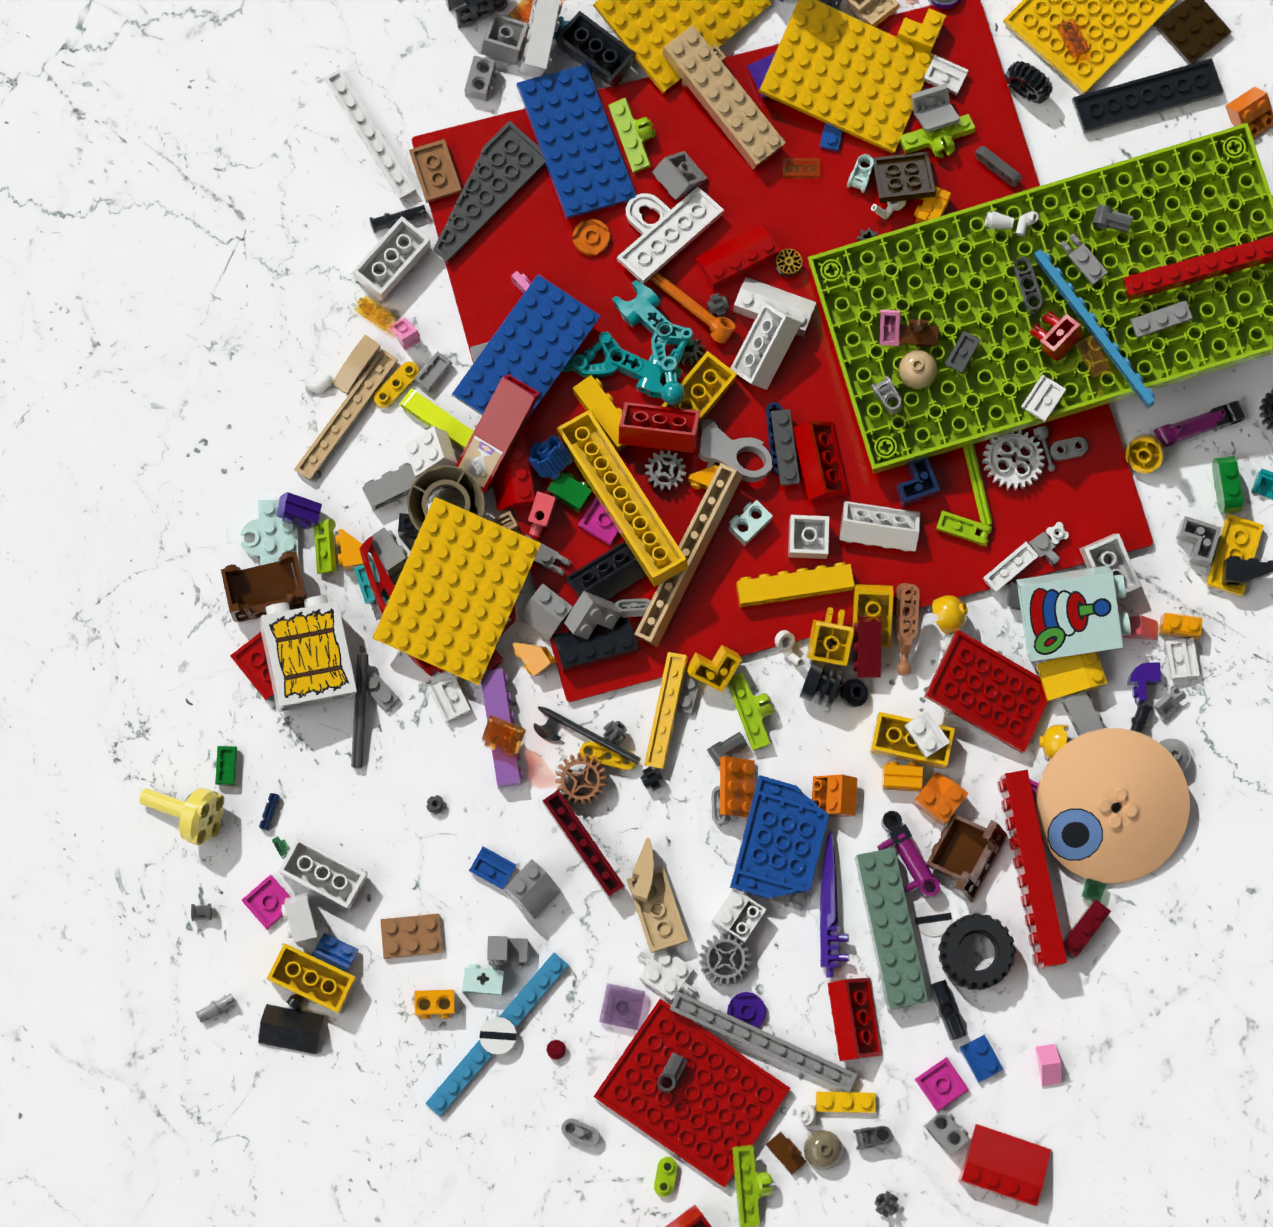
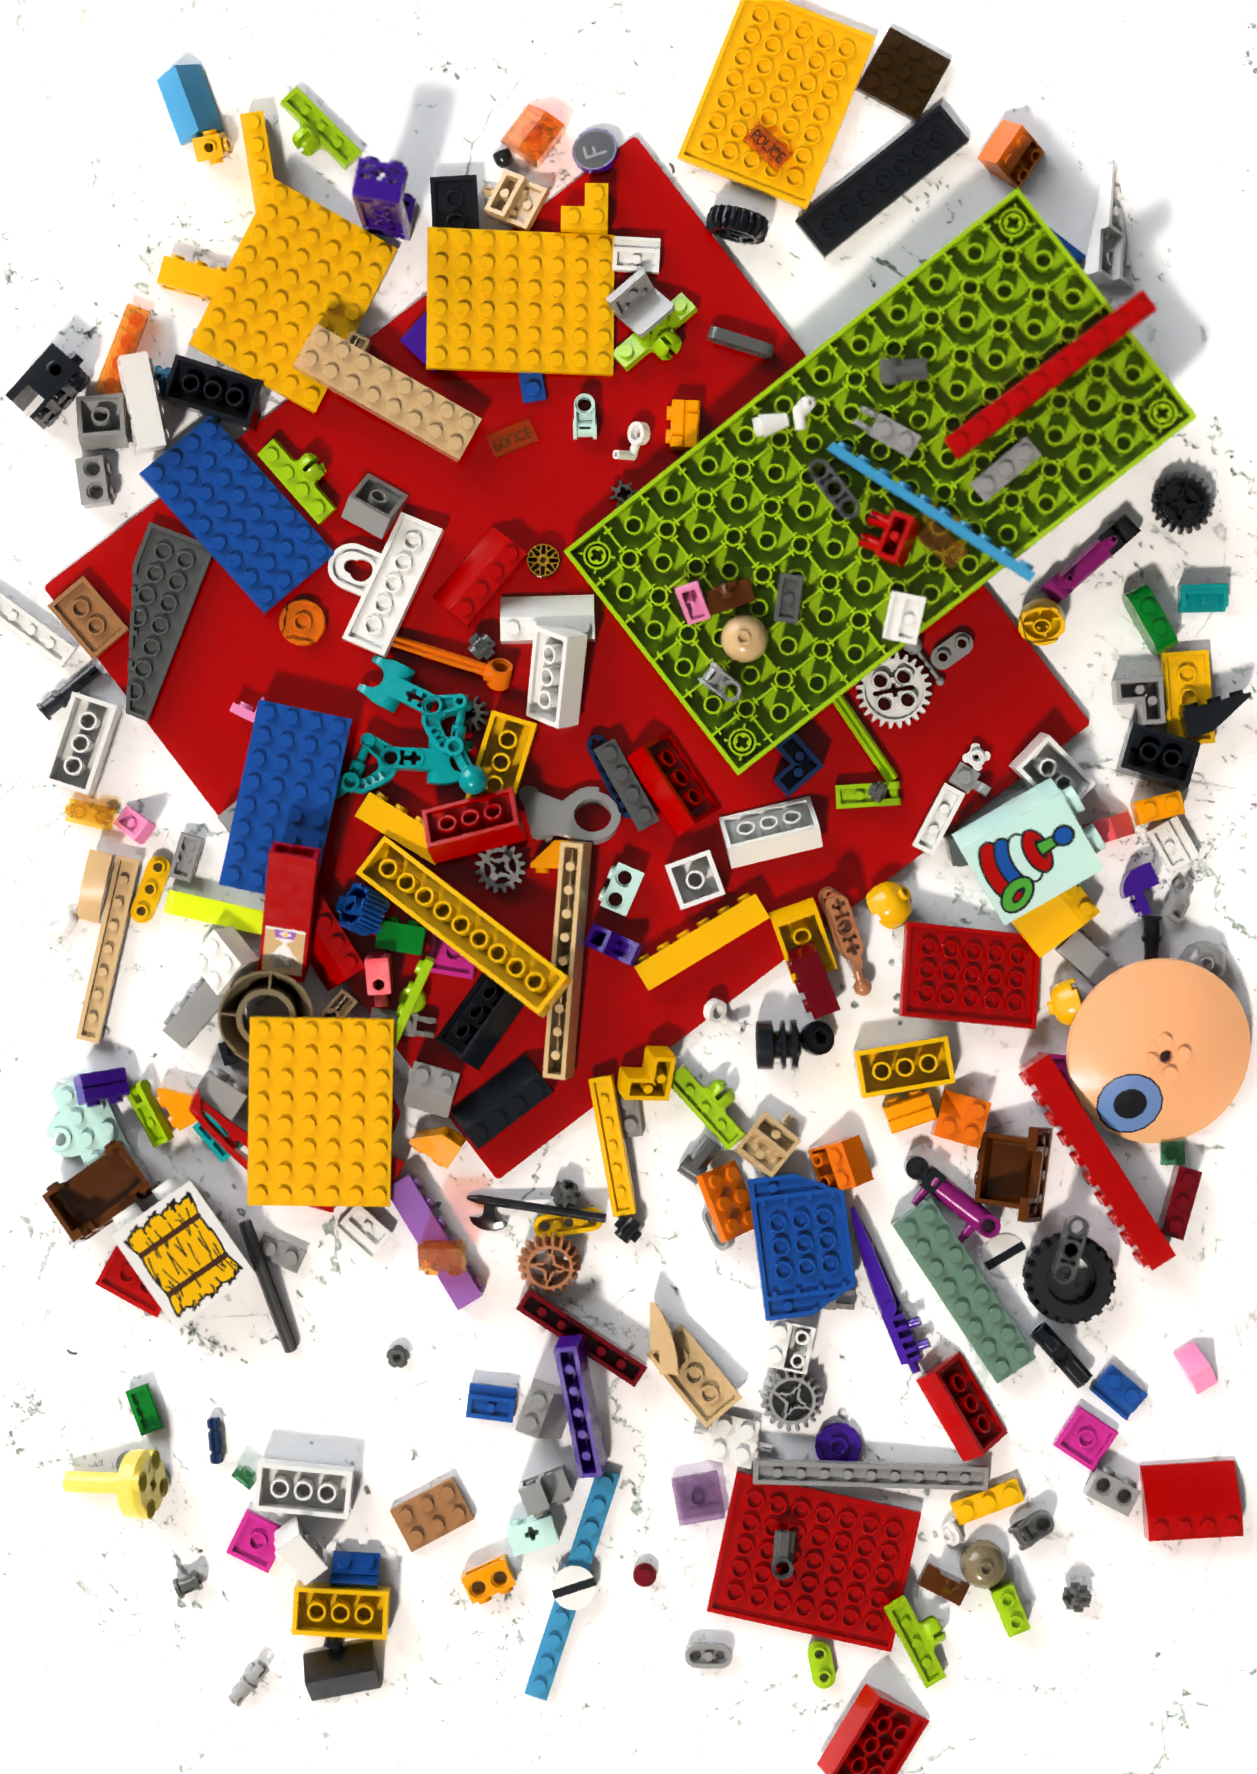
camera: 15 degrees left, 10 degrees up
(560, 538) = (412, 997): none -> lime plate
(561, 894) = (580, 1406): none -> brick
(589, 612) = (482, 1072): light grey brick -> none
(632, 607) = (526, 1043): light grey plate -> none
(726, 559) = (613, 945): none -> dark purple brick
(785, 756) = (768, 1144): none -> tan plate
(830, 1191) = (1009, 1608): none -> lime brick
(841, 635) = (757, 981): yellow hinge -> none
(903, 177) = (636, 403): dark brown plate -> none
(927, 734) = (919, 1057): white plate -> none
(973, 526) = (877, 791): none -> dark grey plate
(995, 919) = (1073, 1260): none -> dark grey beam
(1195, 587) = (1158, 757): none -> black slope

